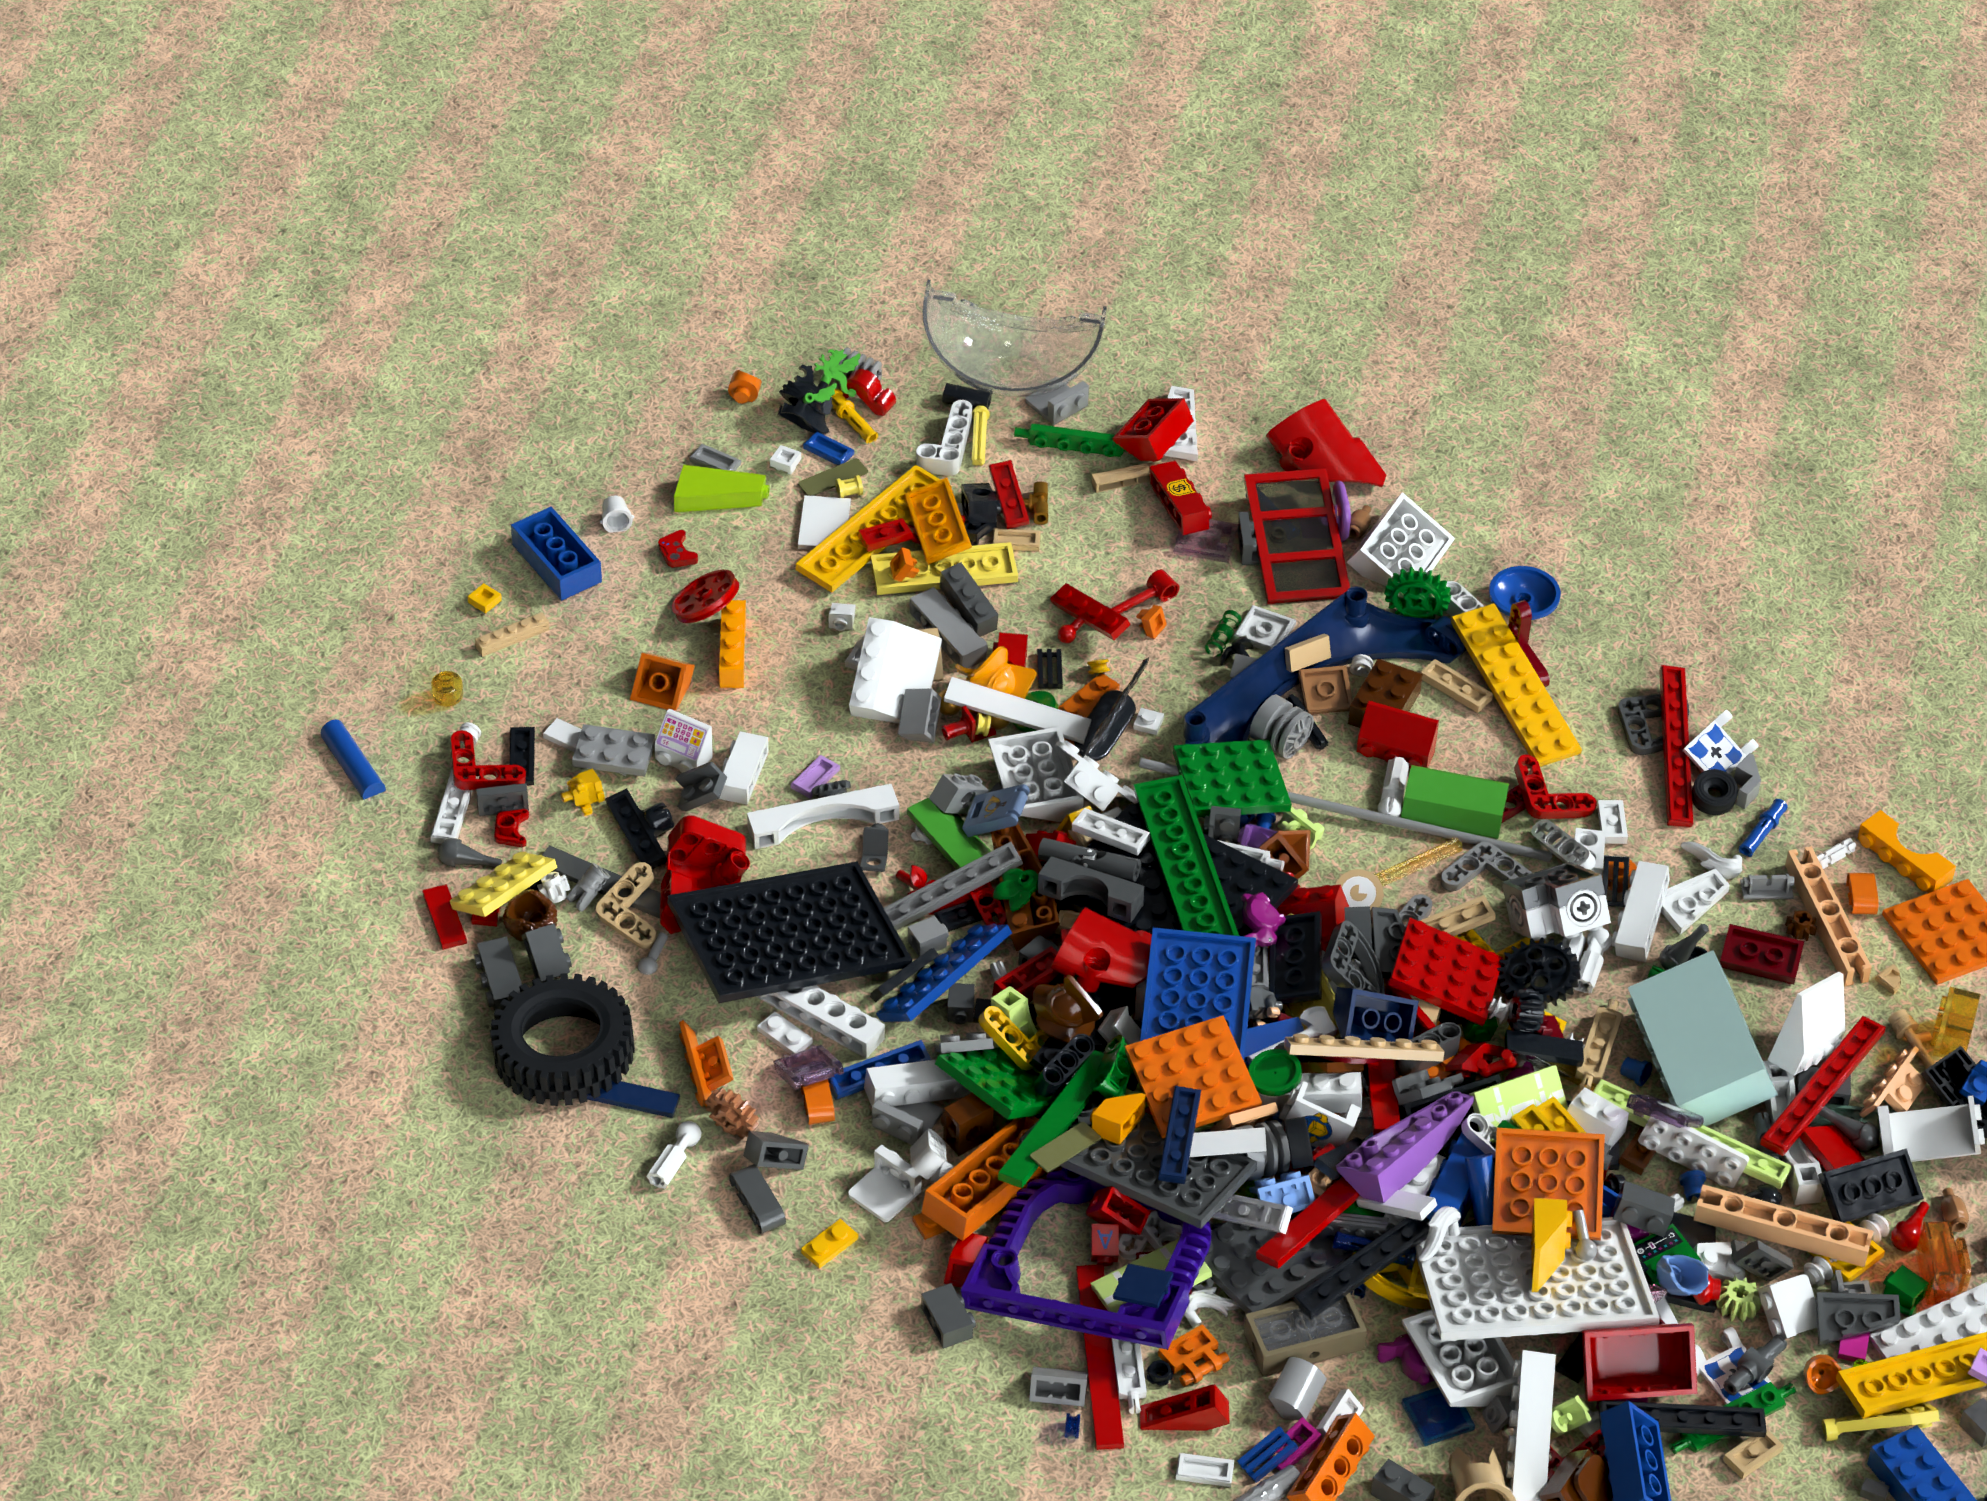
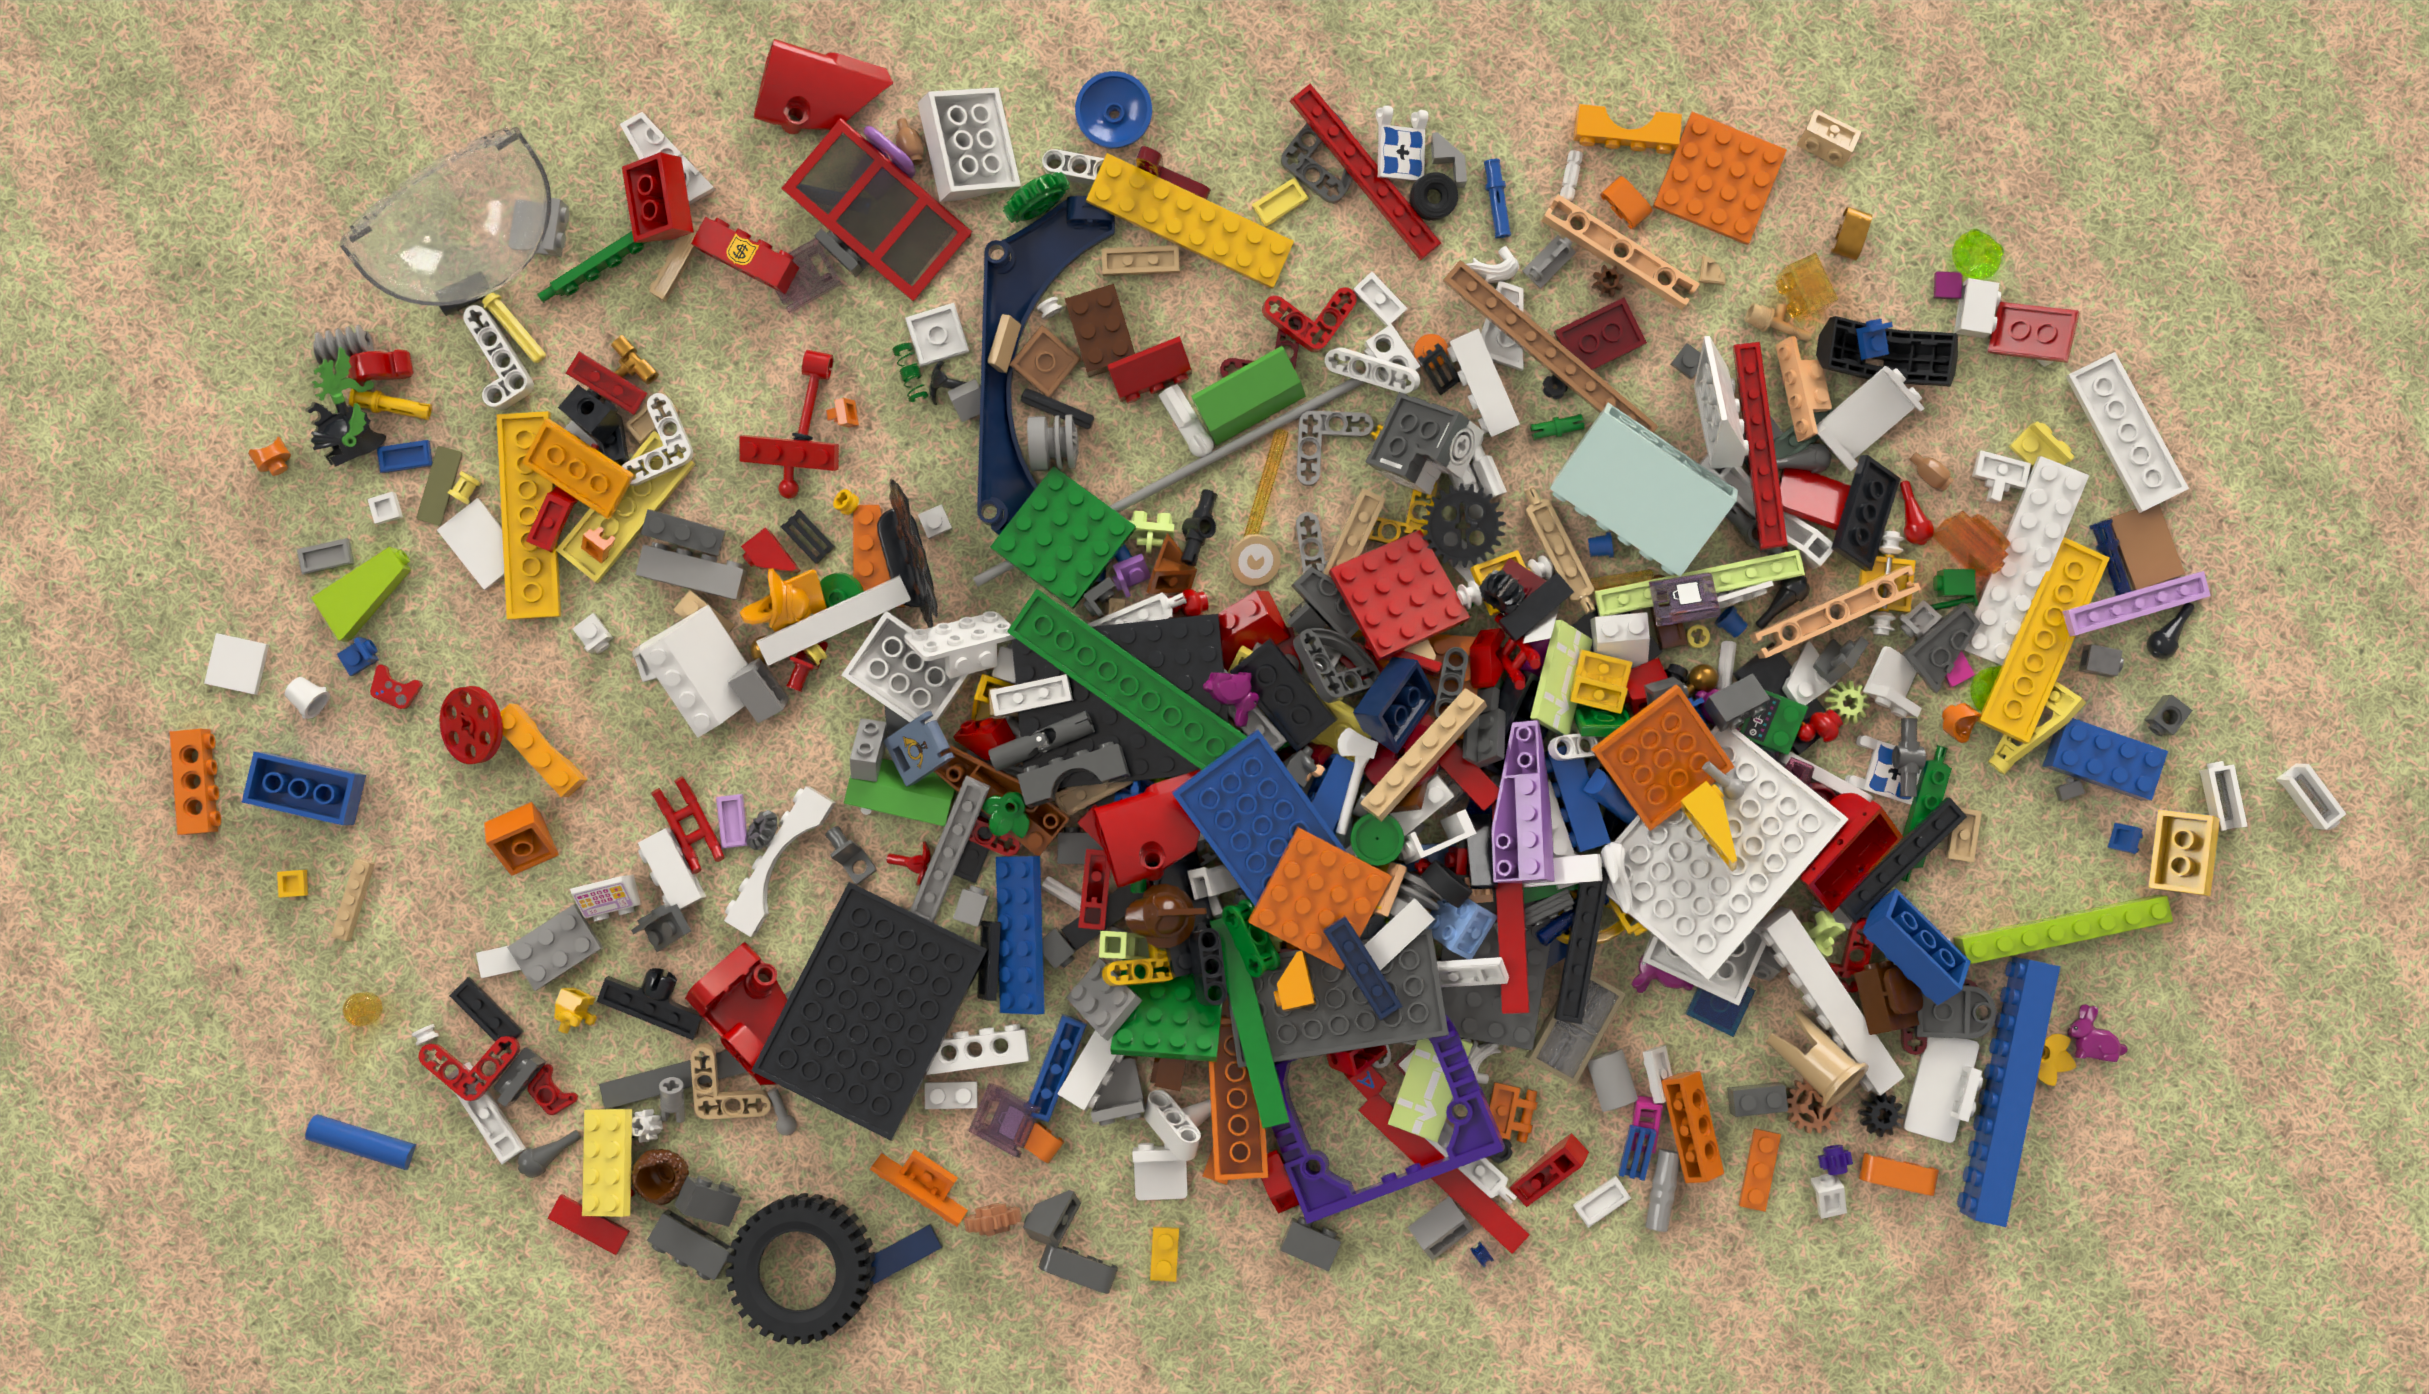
camera: 35 degrees left, 40 degrees up
(489, 504) = (184, 772): none -> orange brick
(590, 471) = (236, 664): none -> white tile
(673, 520) = (358, 655): none -> blue bracket
(673, 1155) = (981, 1287): white piece -> none
(778, 746) = (686, 840): none -> red piece
(1011, 553) = (670, 443): none -> white beam
(1065, 1147) = (1284, 1051): olive piece -> none
(1143, 1285) = (1448, 1119): dark blue piece -> none
(1345, 846) = (1199, 527): none -> black pin
(1594, 725) = (1280, 202): none -> light yellow tile
(1659, 1171) = (1704, 632): none -> light yellow bush
(1681, 951) = (1543, 402): dark grey piece -> none
(1682, 1275) = (1815, 743): medium blue hair -> none
(1707, 909) = (1539, 343): none -> medium nougat plate

